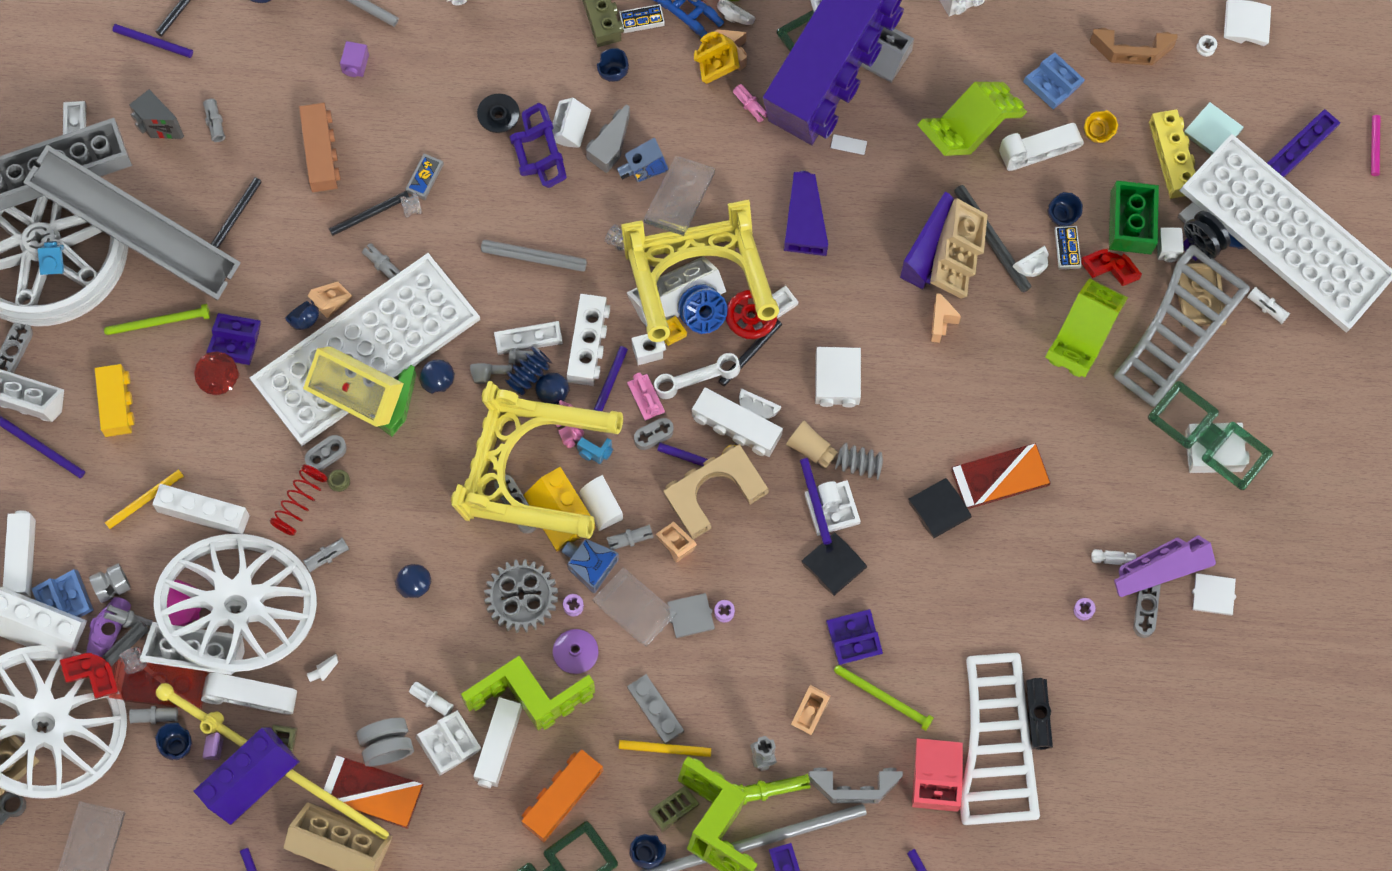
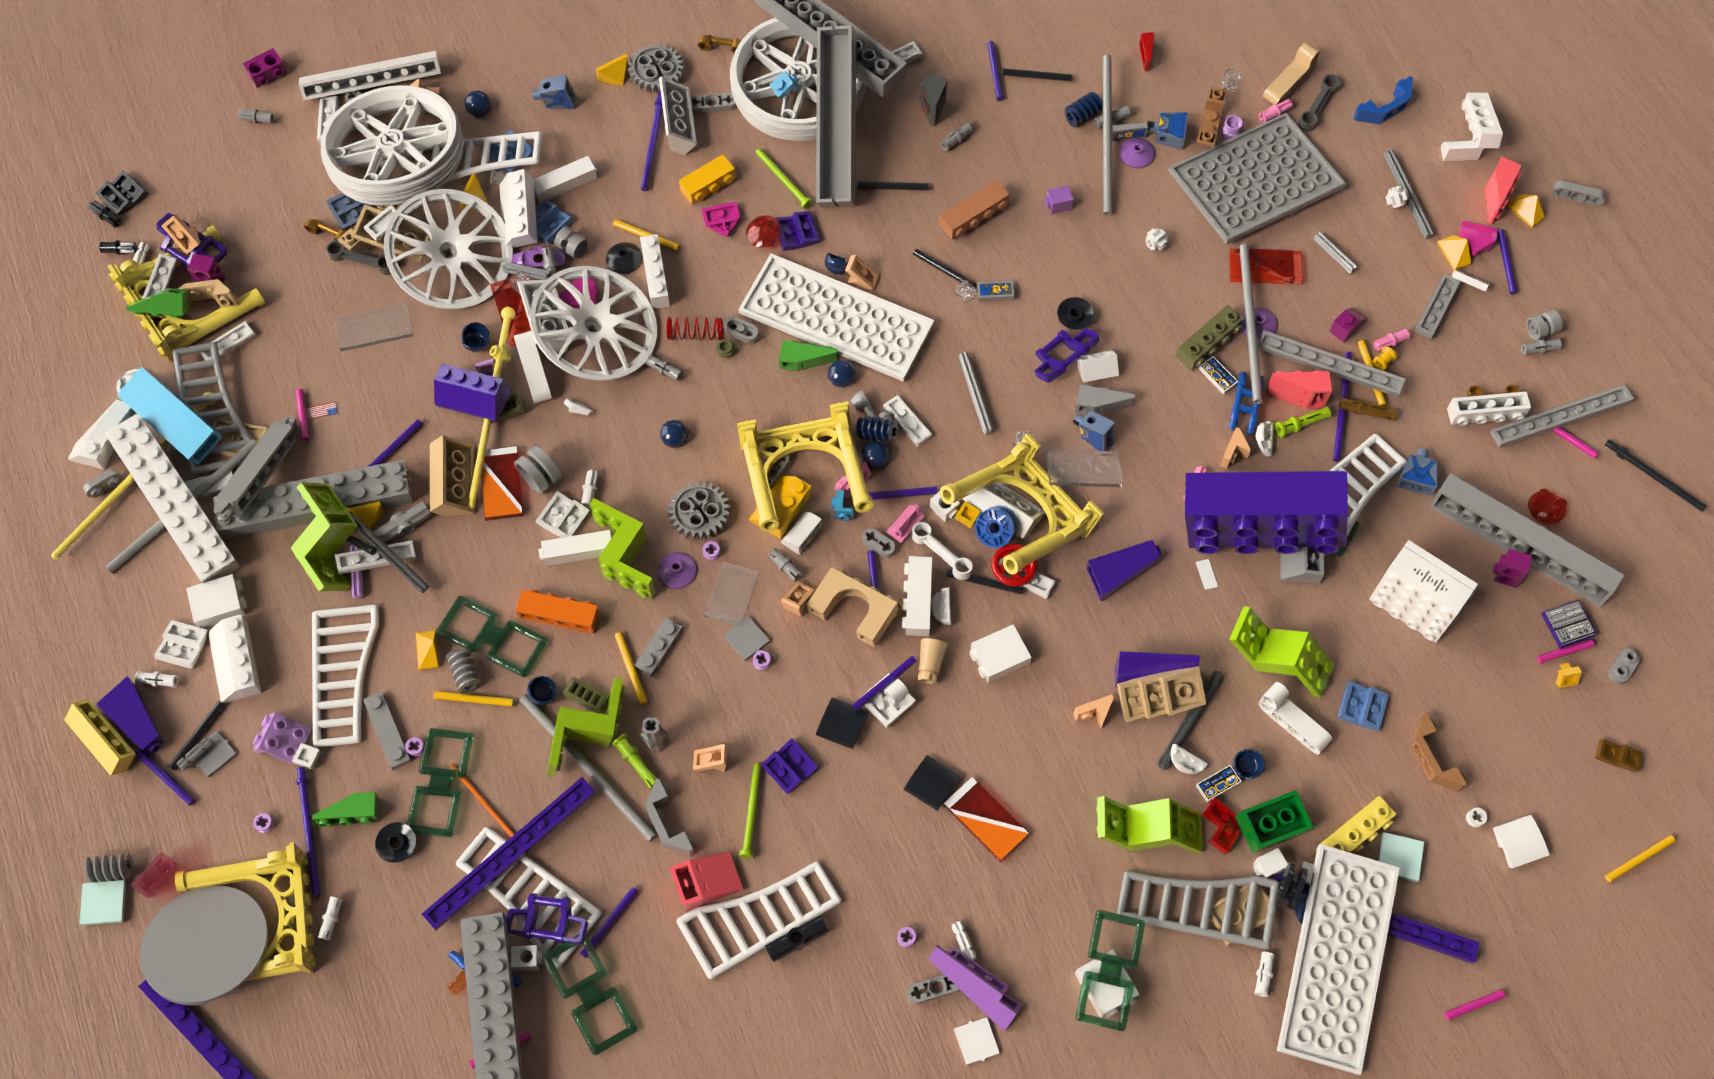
camera: 65 degrees right, 5 degrees down
(90, 666) = (501, 263): red plate -> none
(153, 715) = (489, 317): light grey pin -> none
(159, 546) = (627, 263): none -> black dish
(171, 409) = (721, 217): none -> dark pink slope
(353, 386) = (794, 315): piece -> none
(381, 261) = (910, 294): light grey pin -> none
(588, 307) = (933, 452): white brick -> none
(590, 562) = (749, 546): torso -> none
(613, 65) = (1164, 372): dark blue hair -> none
(716, 56) = (1216, 439): yellow slope -> none
(859, 460) = (936, 702): light grey piece -> none
(1100, 126) = (1342, 760): yellow hair -> none

